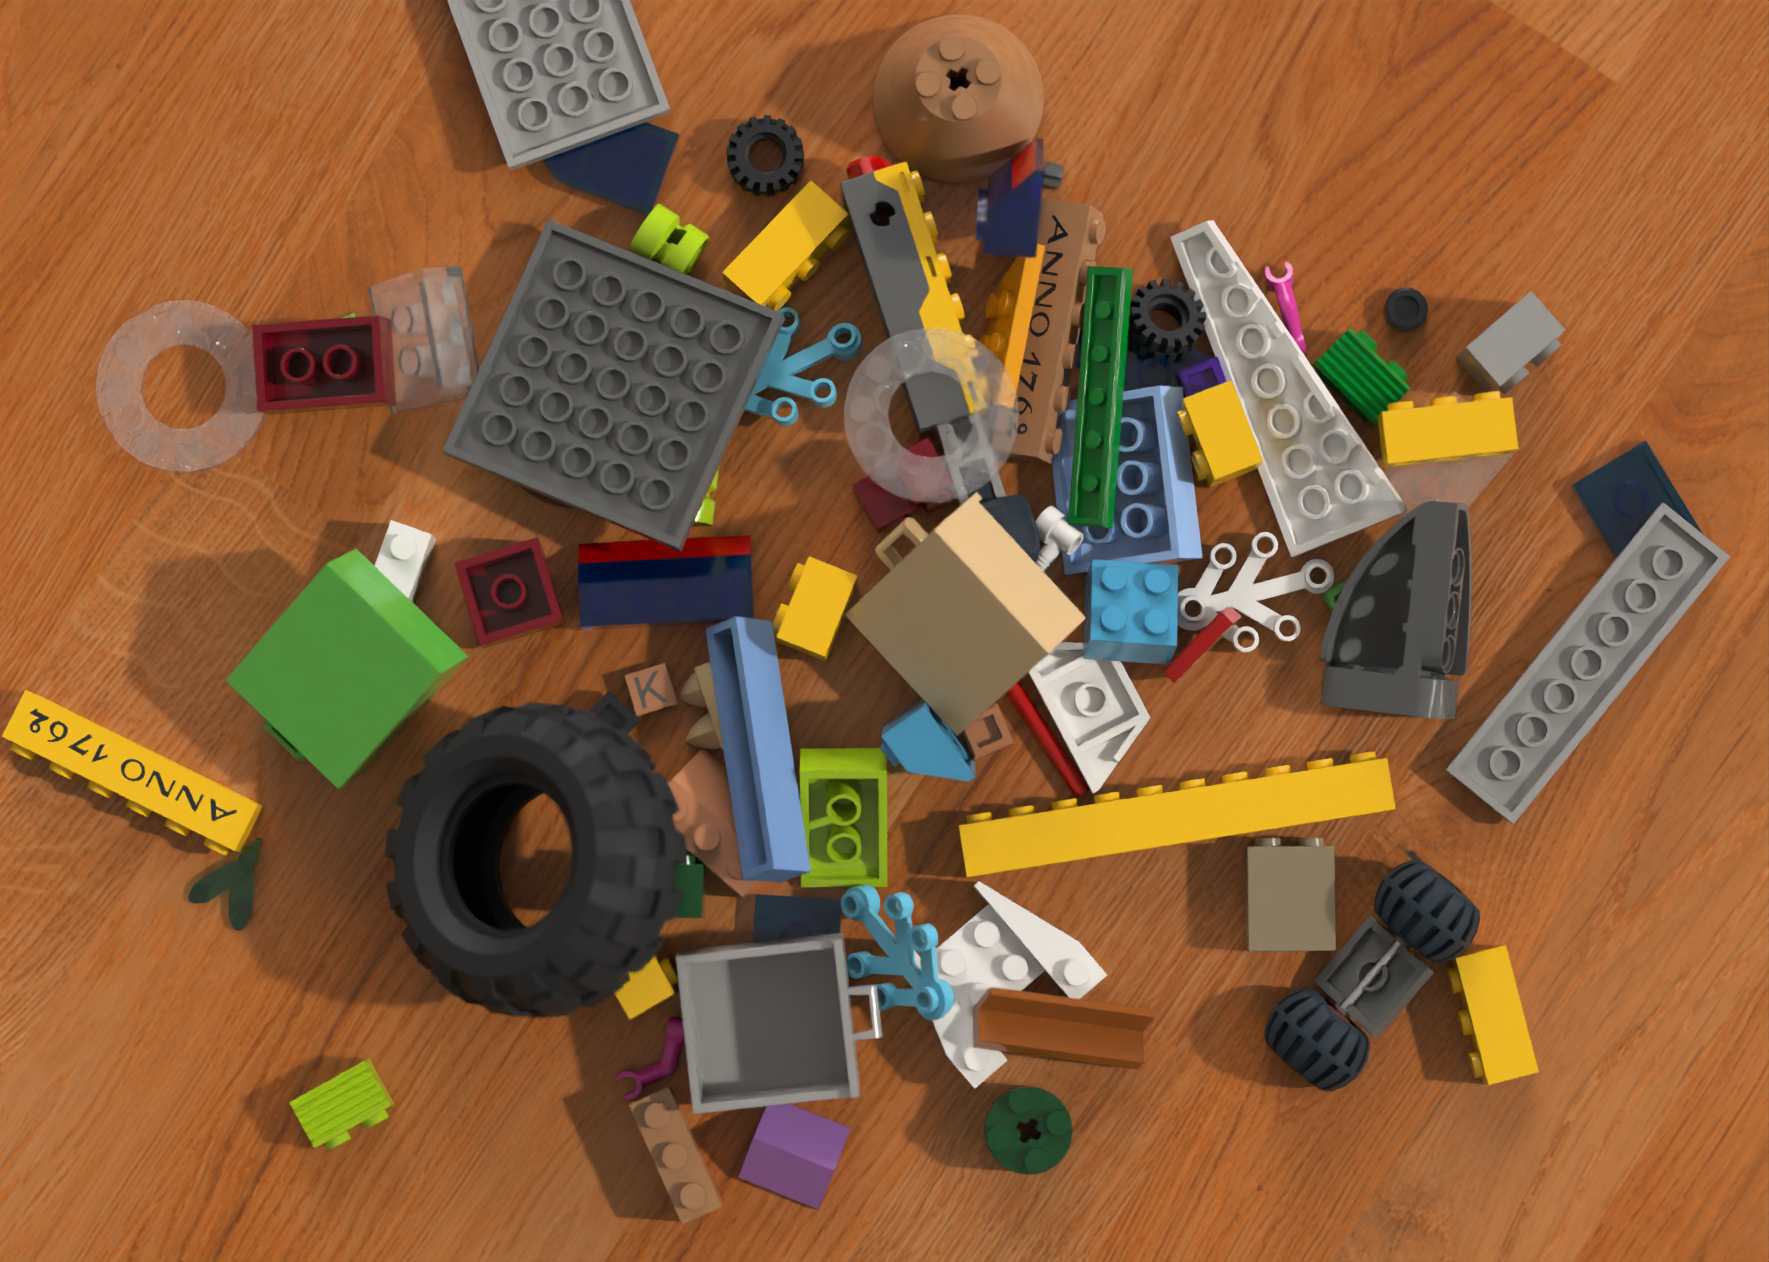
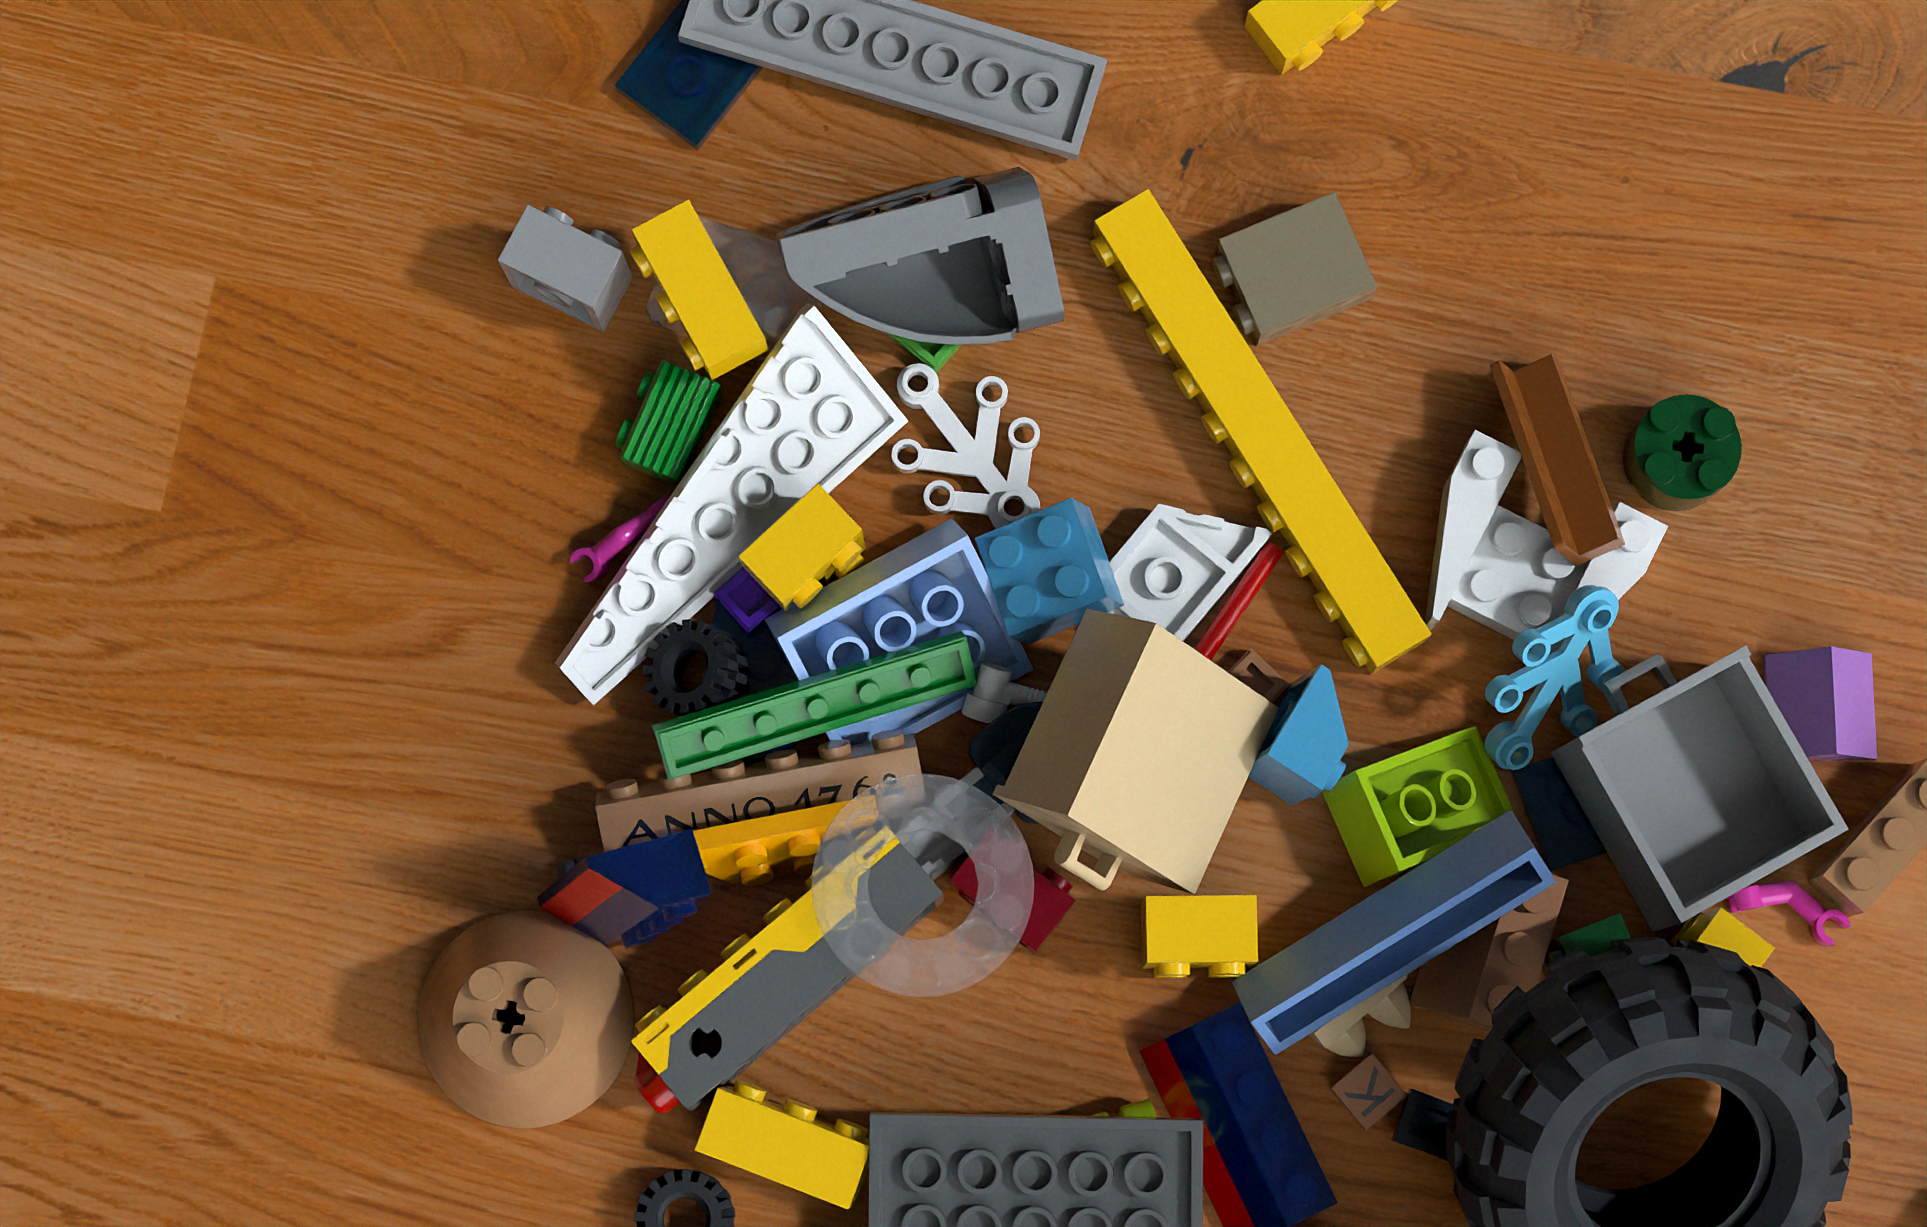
camera: 110 degrees left, 5 degrees down
(779, 371) = (935, 1094): medium azure plant -> none
(1202, 644) = (1050, 476): red tile -> none
(1372, 976) = (1345, 141): black plate -> none
(1405, 309) = (571, 407): black tile -> none

